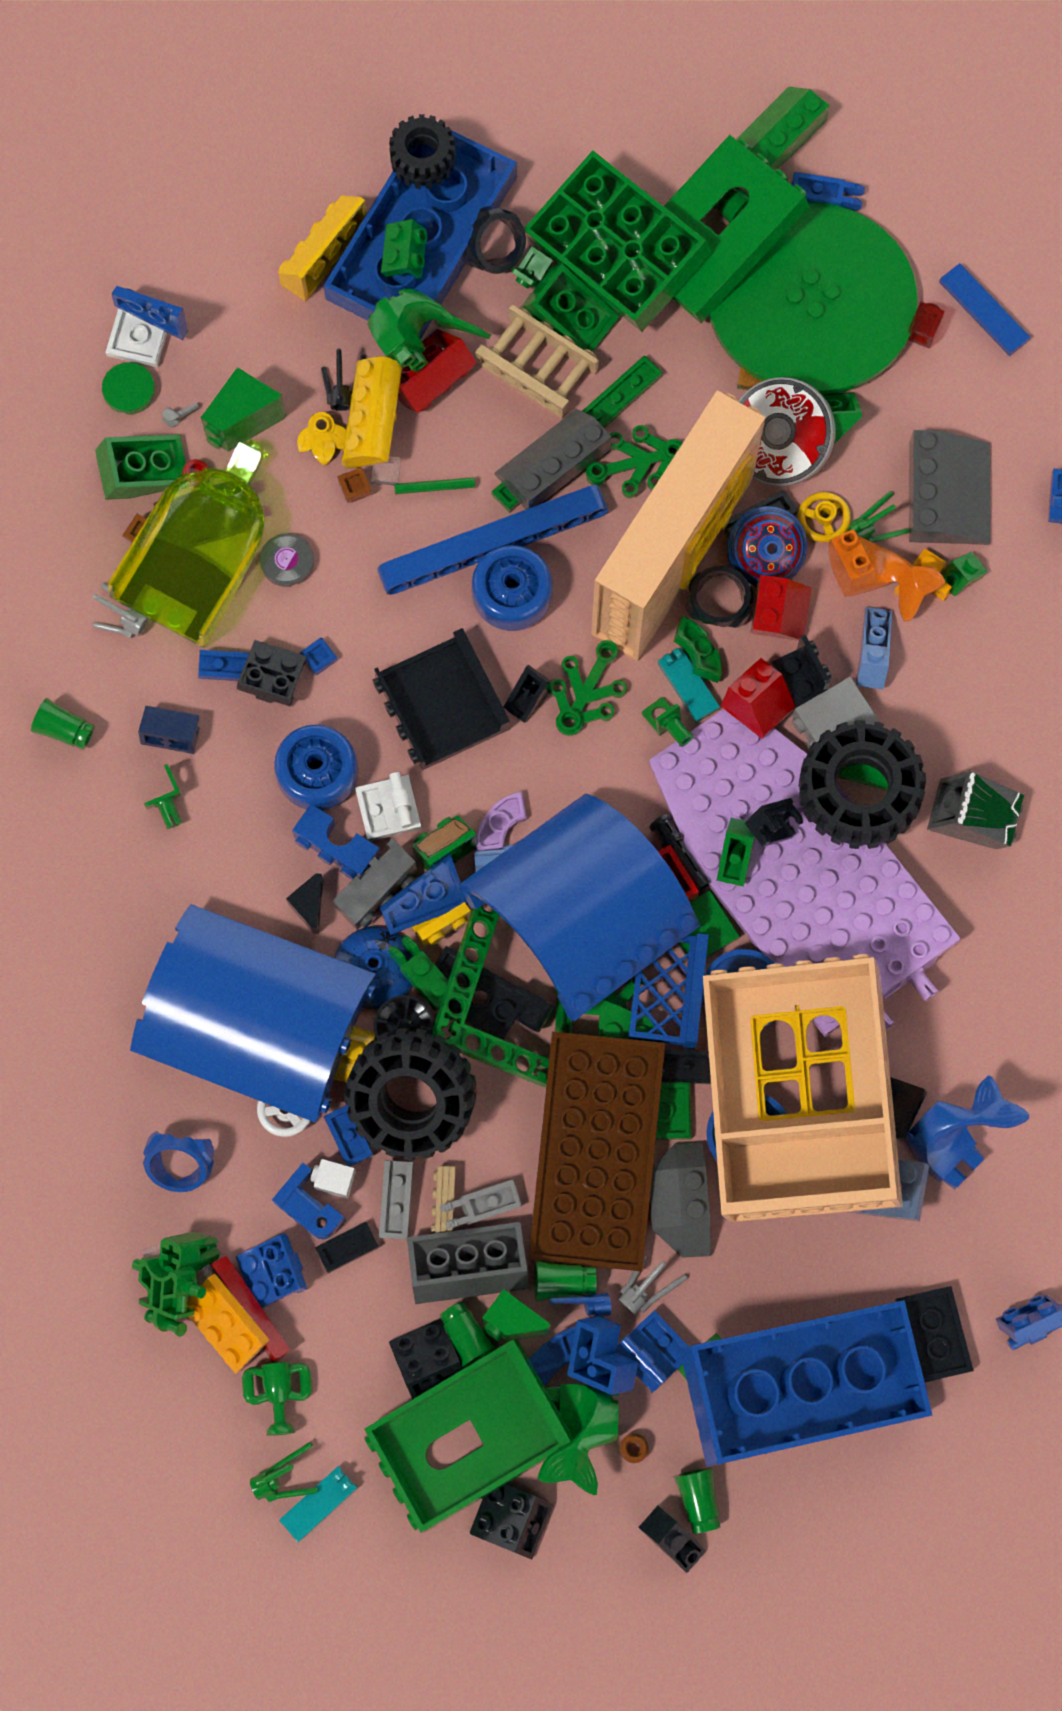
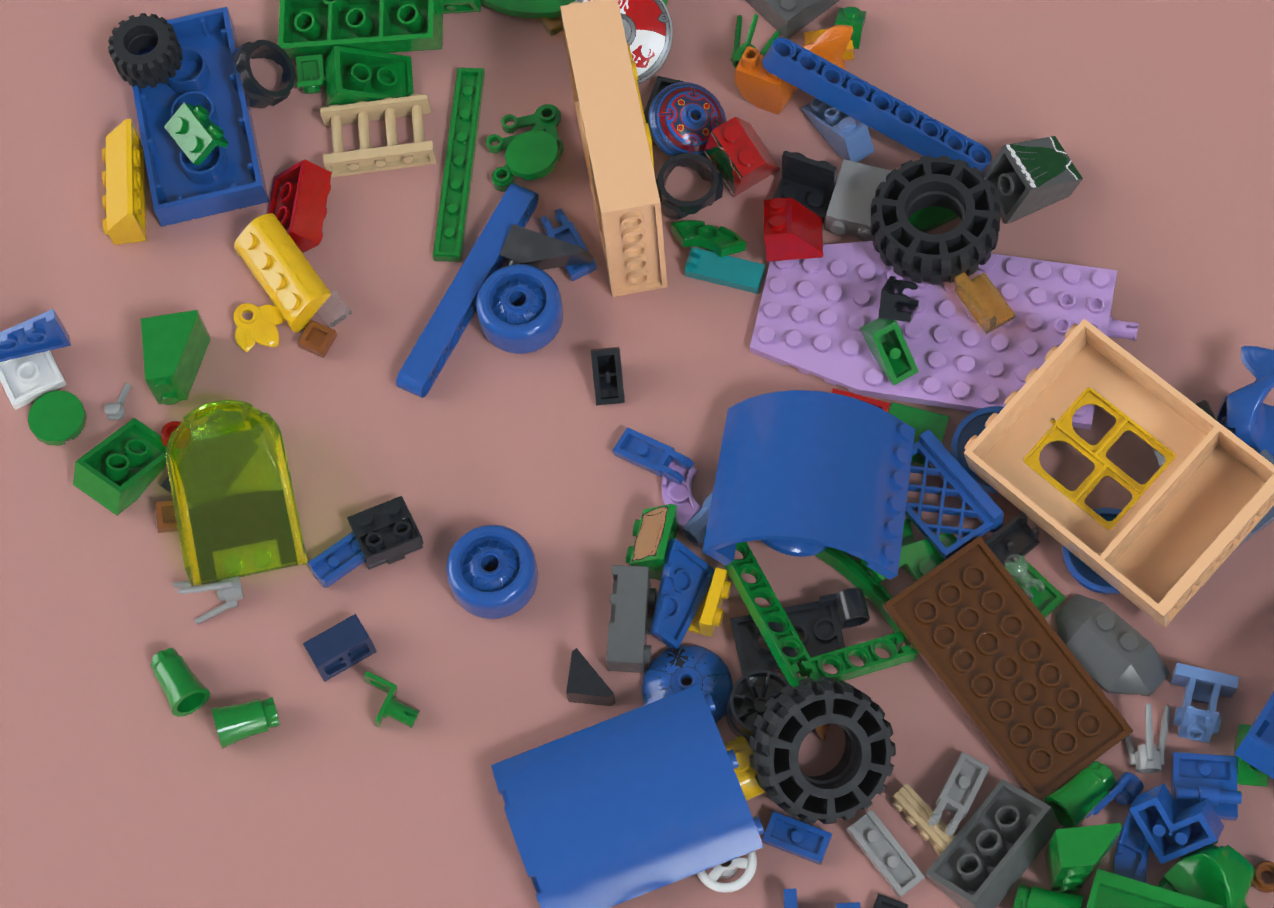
camera: 35 degrees left, 10 degrees down
(42, 659) = (178, 683): none -> green plant
(247, 459) = (209, 387): clear neon green bracket -> none
(286, 560) = (314, 439): dark grey tile -> none
(313, 832) = (540, 626): blue arch -> none
(319, 656) = (411, 488): blue tile -> none
(333, 1178) = (819, 882): white brick -> none
(340, 396) = (243, 284): black plant -> none
(388, 807) = (579, 555): white plate -> none
(399, 321) = (243, 177): green hips -> none
(421, 972) = (731, 654): green hinge -> none
(437, 485) = (382, 289): green bar -> none
(442, 701) = (544, 438): black panel -> none
(502, 777) = (651, 455): none -> blue hinge
(554, 458) = (461, 190): dark grey slope -> none
(563, 552) = (540, 250): none -> black slope
(585, 692) = (650, 340): green plant -> none
(591, 565) = (568, 234): none -> blue hinge
(630, 474) = (532, 154): none -> green tile
(668, 721) = (738, 304): green bracket -> none
(669, 836) = (826, 385): black pin -> none
(674, 1092) = (1019, 569): none -> clear arm
(721, 1286) = (1203, 687): none -> medium blue tile
(824, 507) = (708, 59): yellow piece -> none
(840, 876) = (983, 301): none -> clear yellow panel
(894, 652) = (871, 105): none -> blue beam

